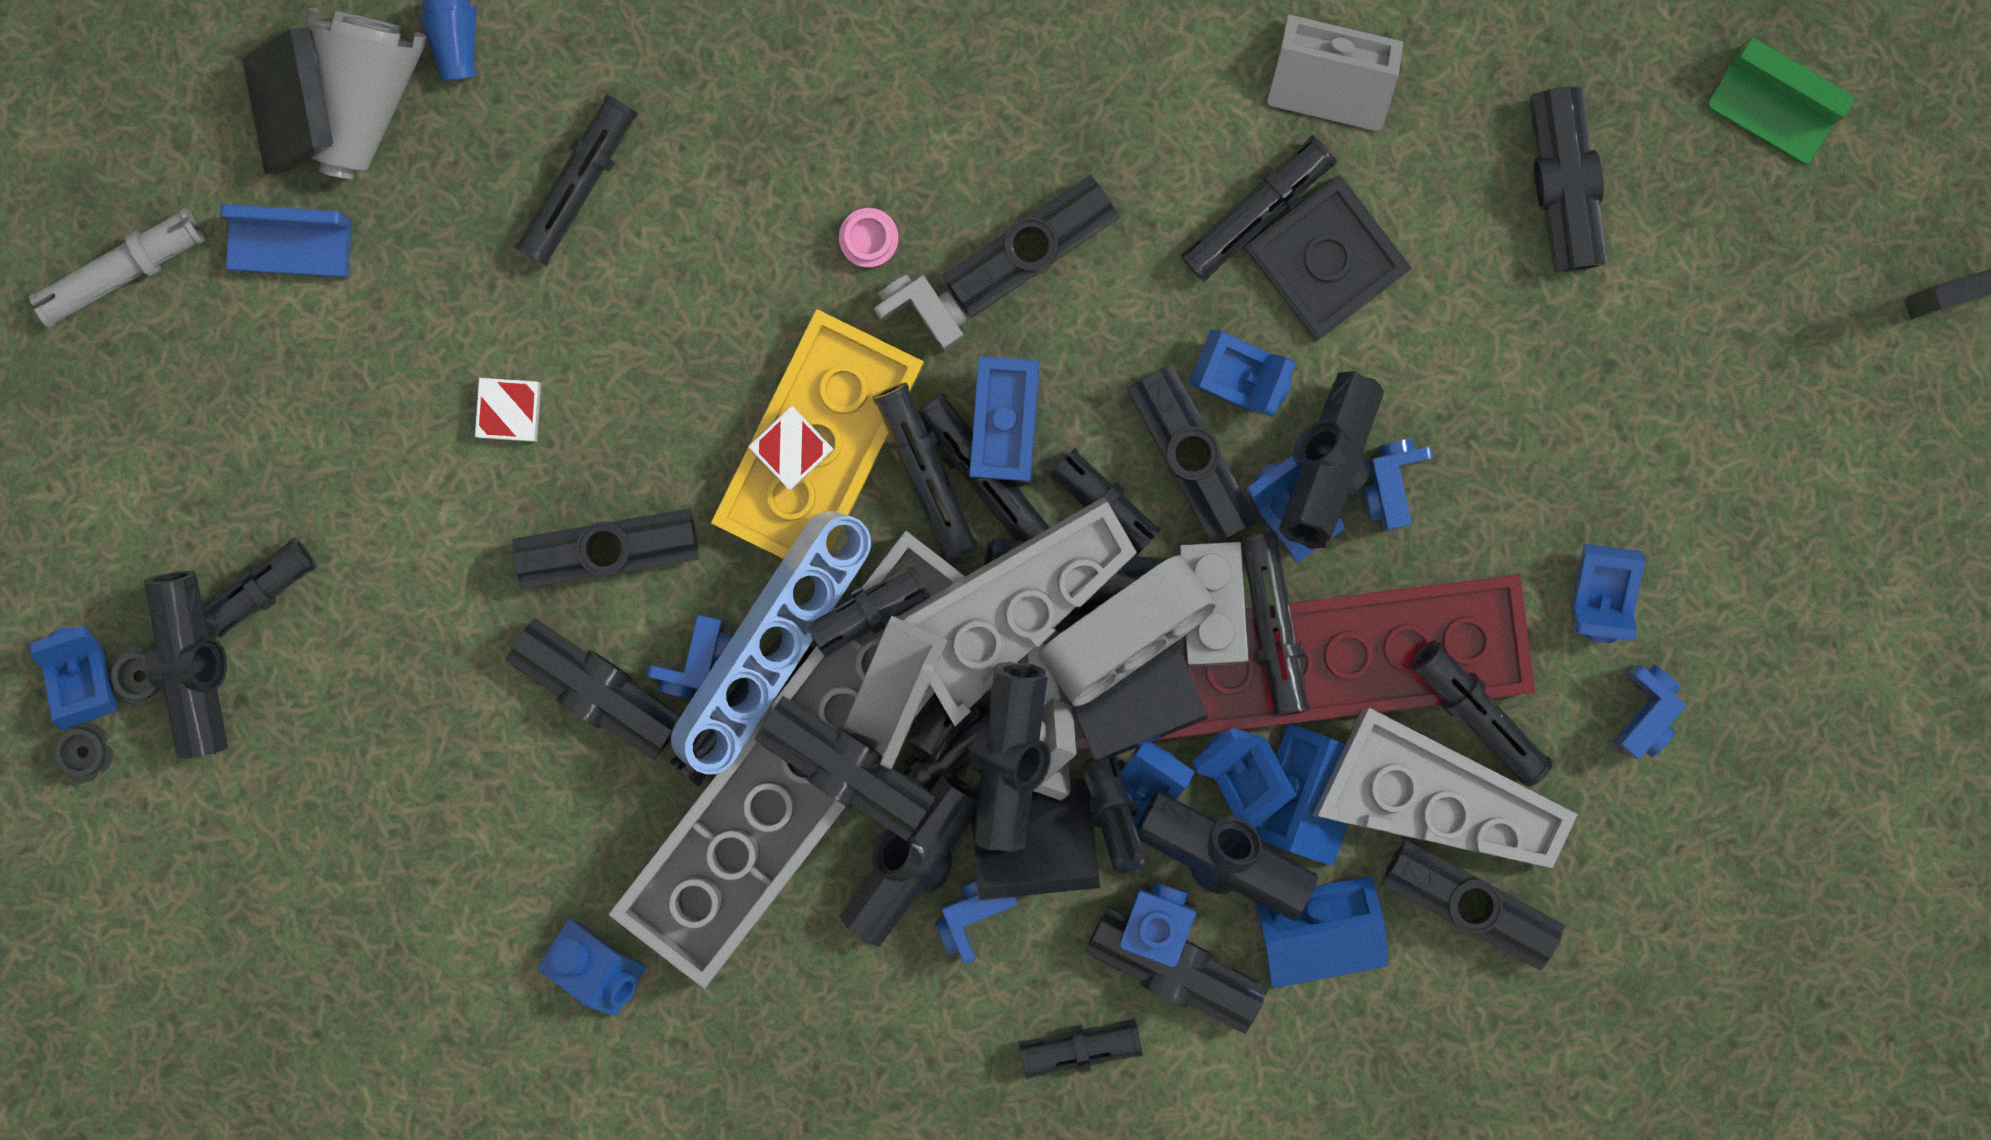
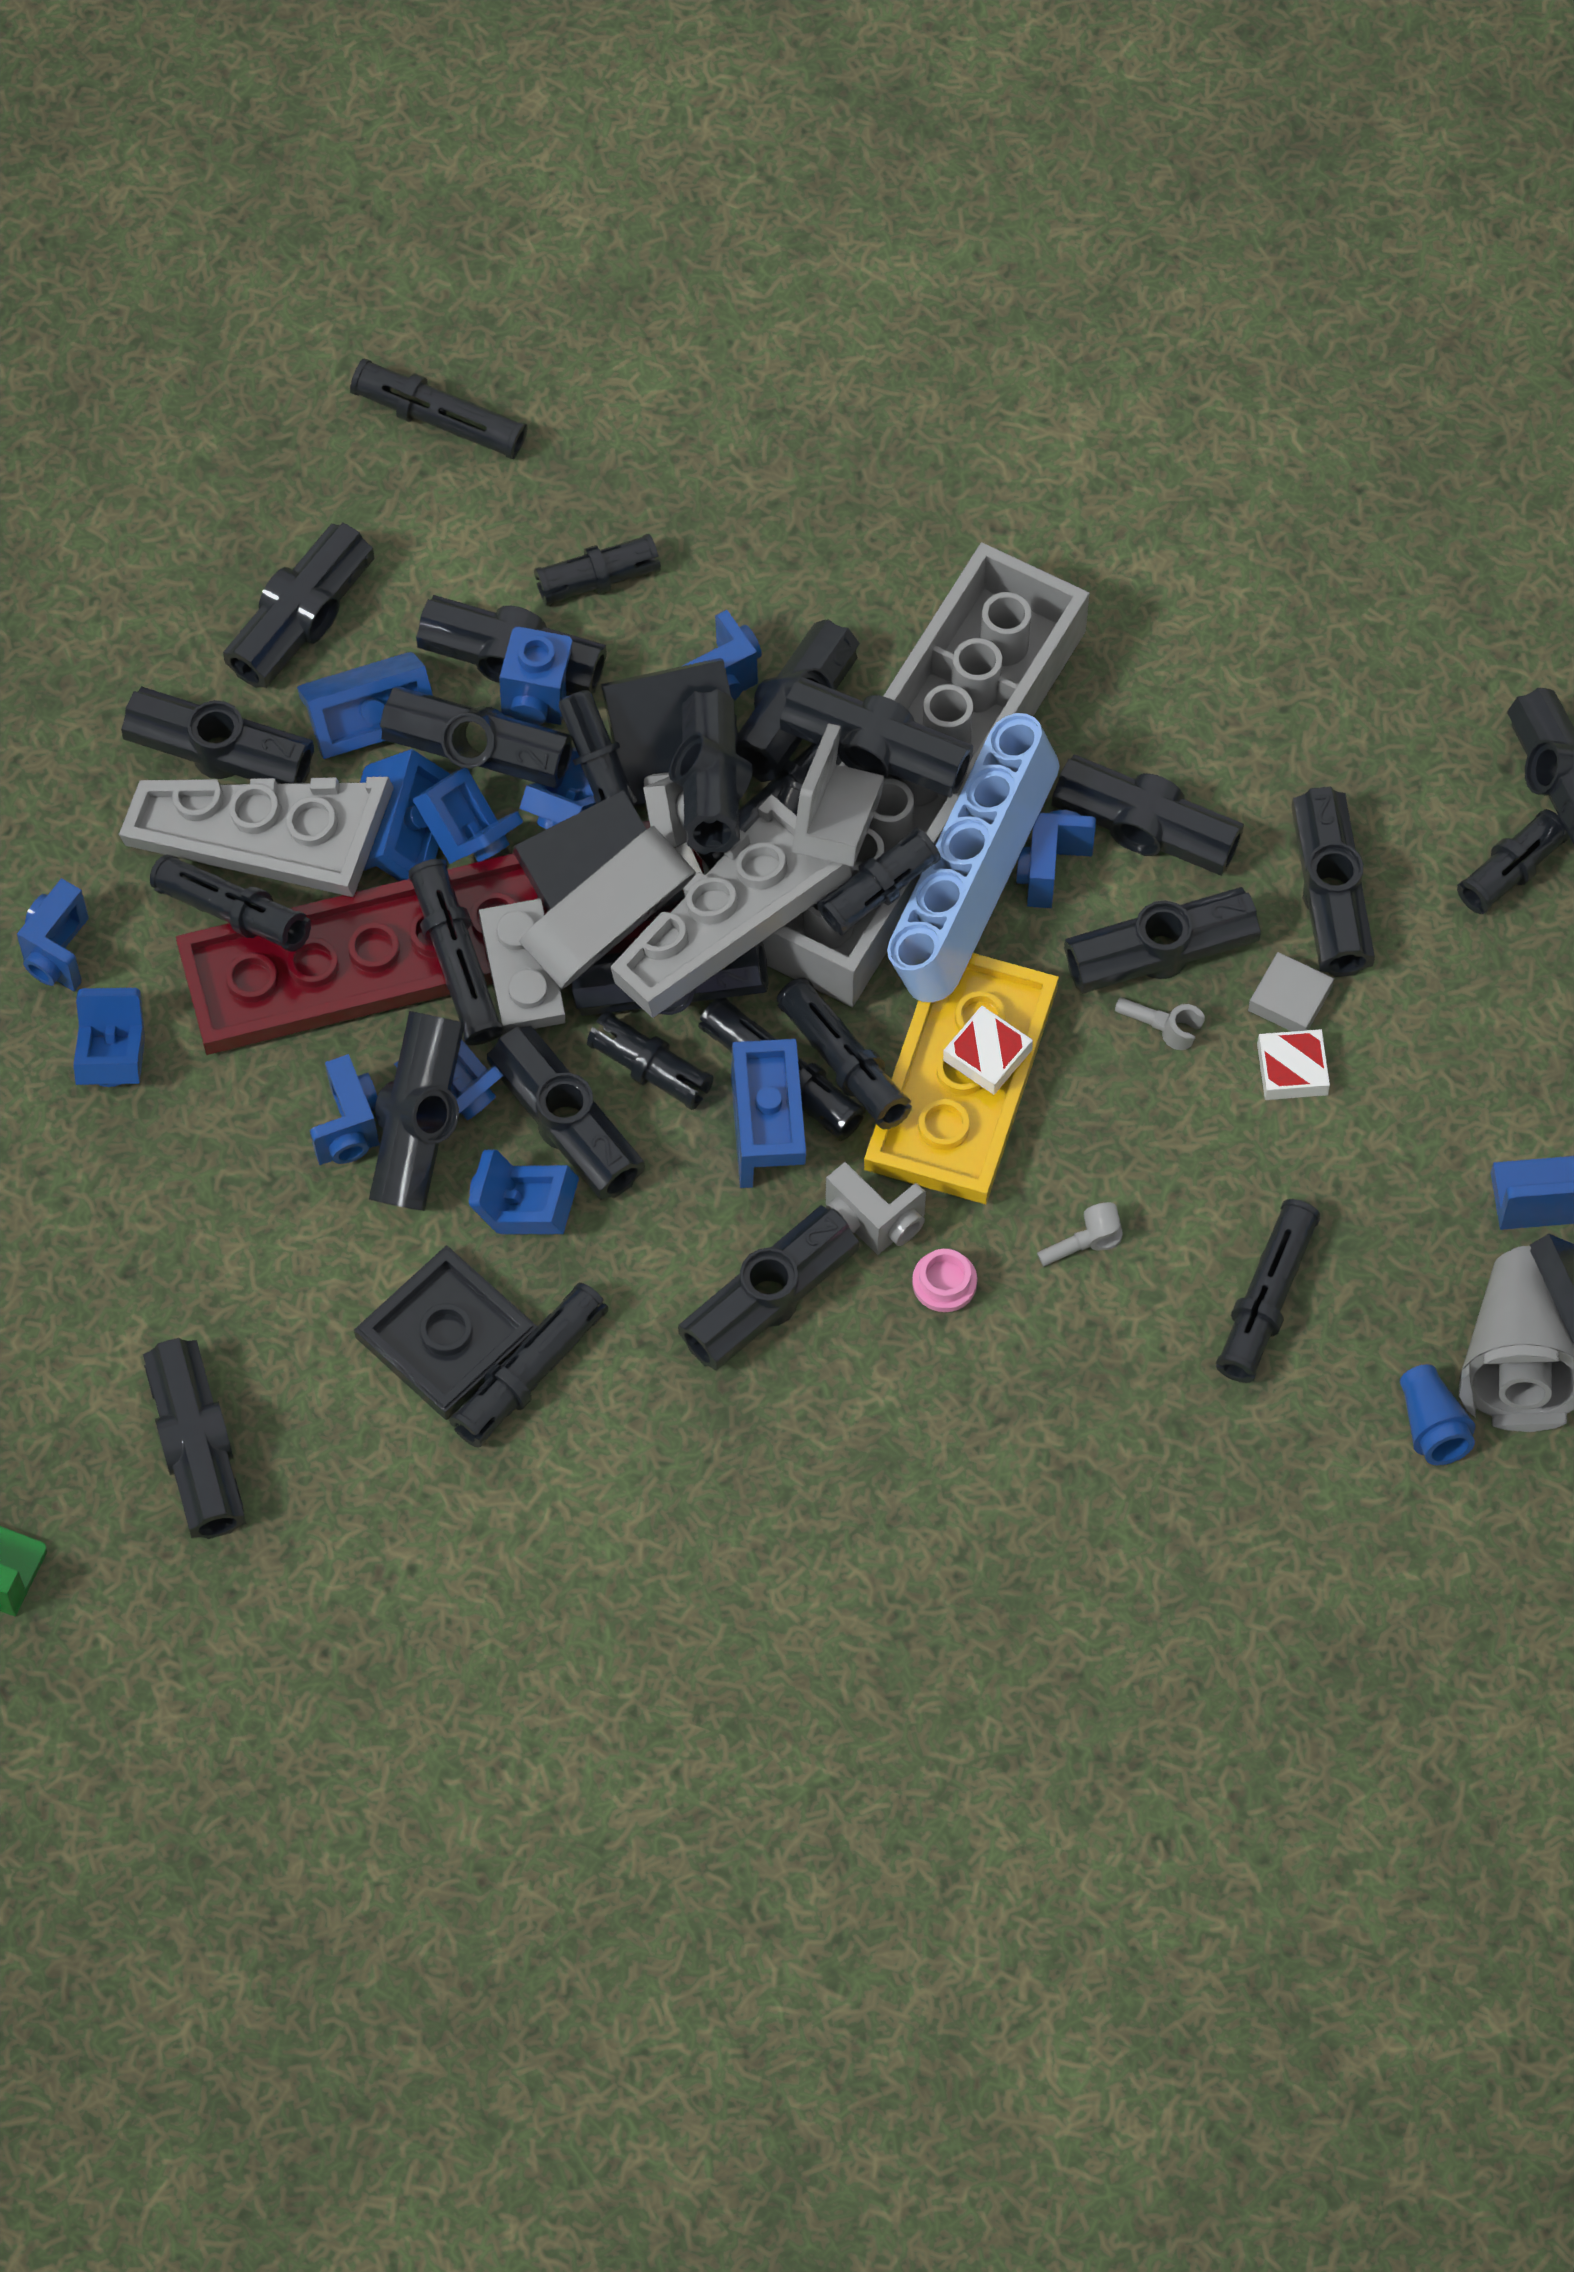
camera: 170 degrees right, 25 degrees down
(432, 547) = (1339, 911): none -> black piece
(495, 483) = (1290, 994): none -> light grey tile
(591, 969) = (1104, 569): blue bracket -> none
(622, 476) = (1166, 1022): none -> light grey hand
(716, 266) = (1101, 1233): none -> light grey hand
(1335, 73) = (462, 1519): light grey panel -> none
(1377, 1048) = (298, 605): none -> black piece

